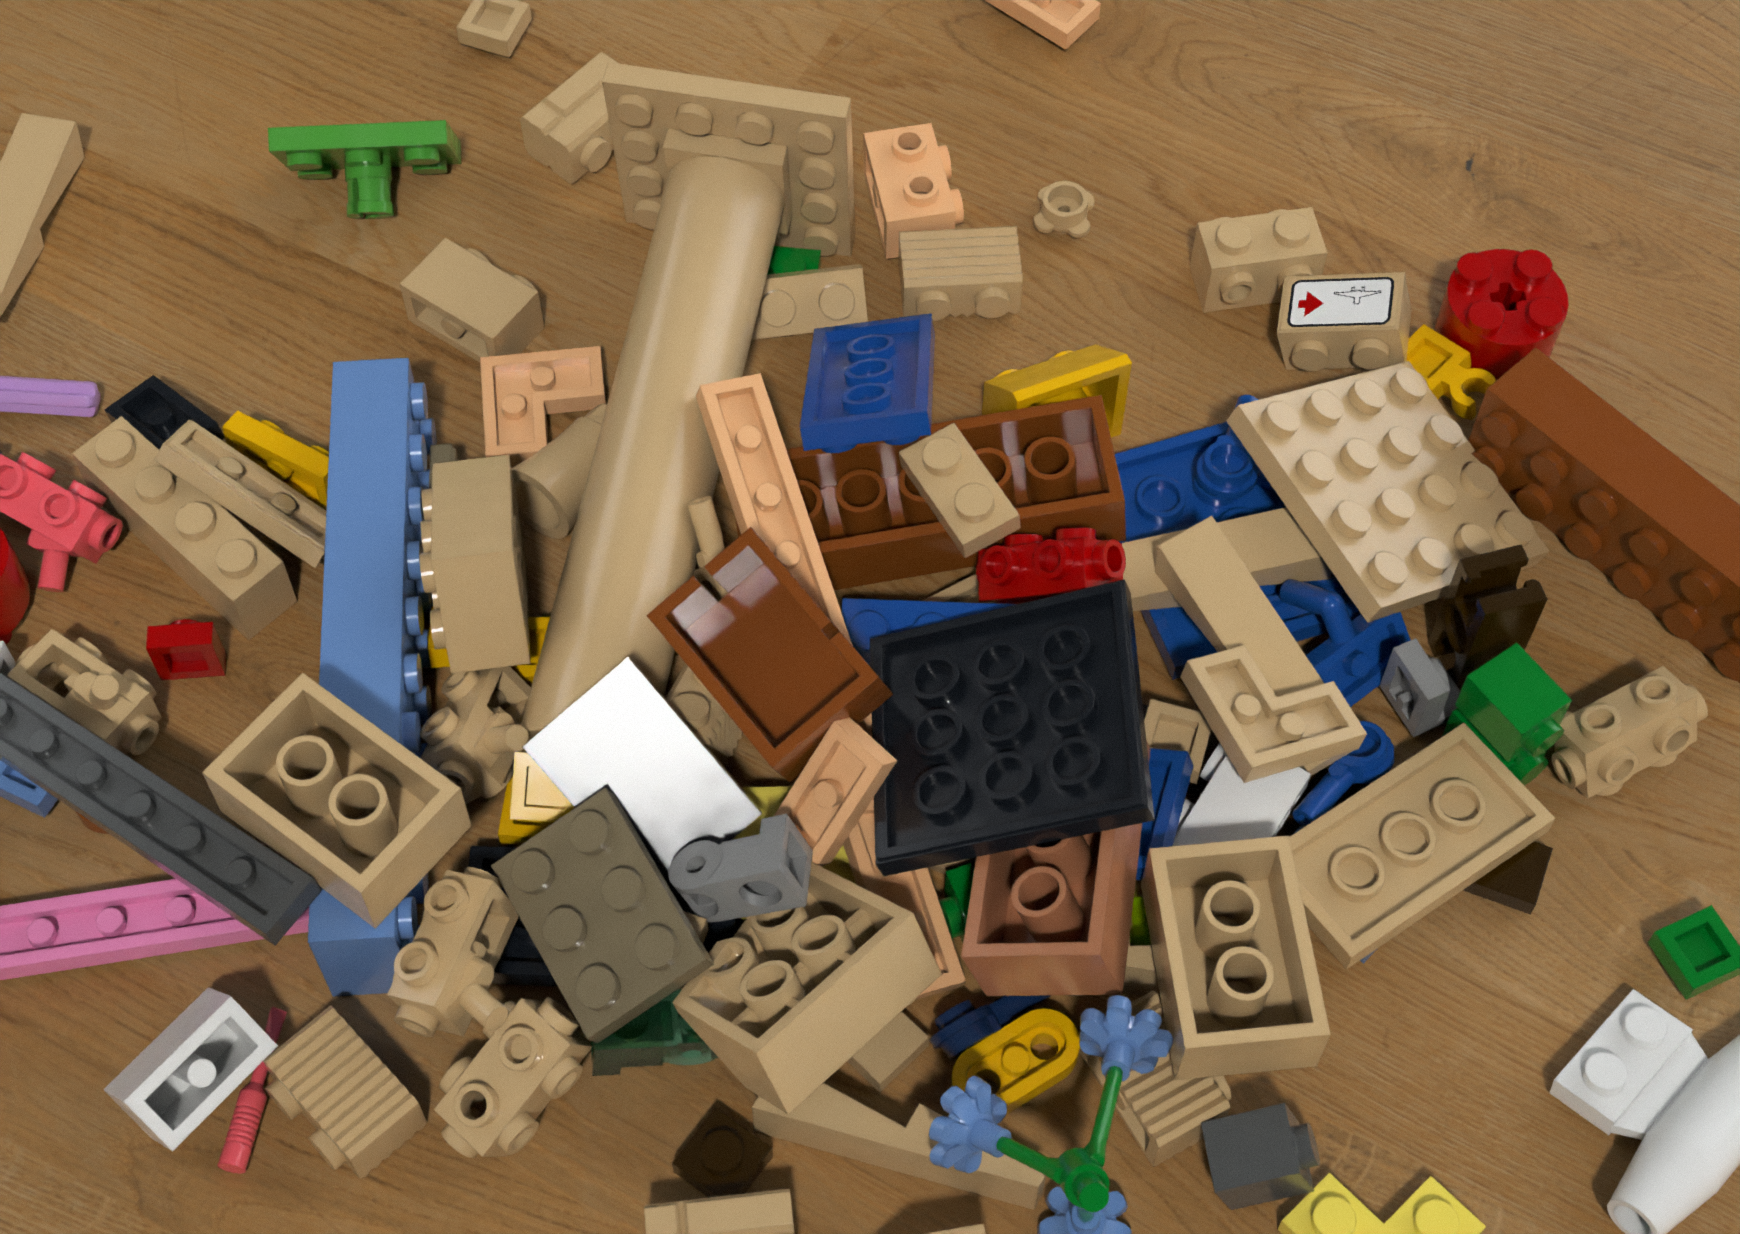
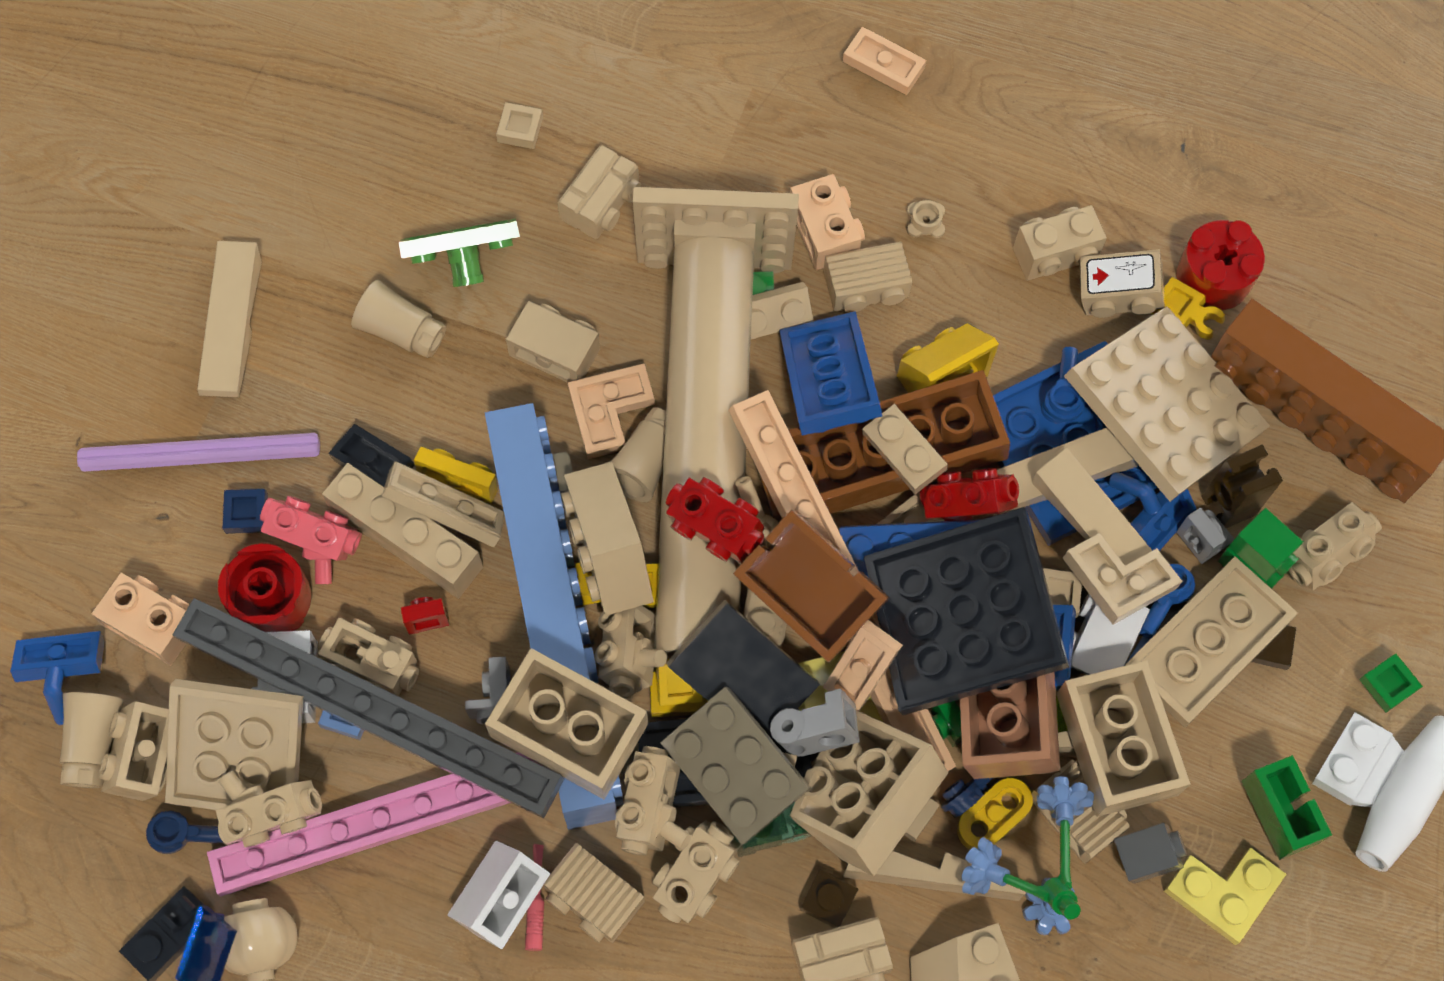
camera: 10 degrees left, 10 degrees up
(250, 245) = (397, 320): none -> tan plant
(634, 536) = (725, 526): none -> red brick
(1481, 1087) = (1271, 794): none -> green piece

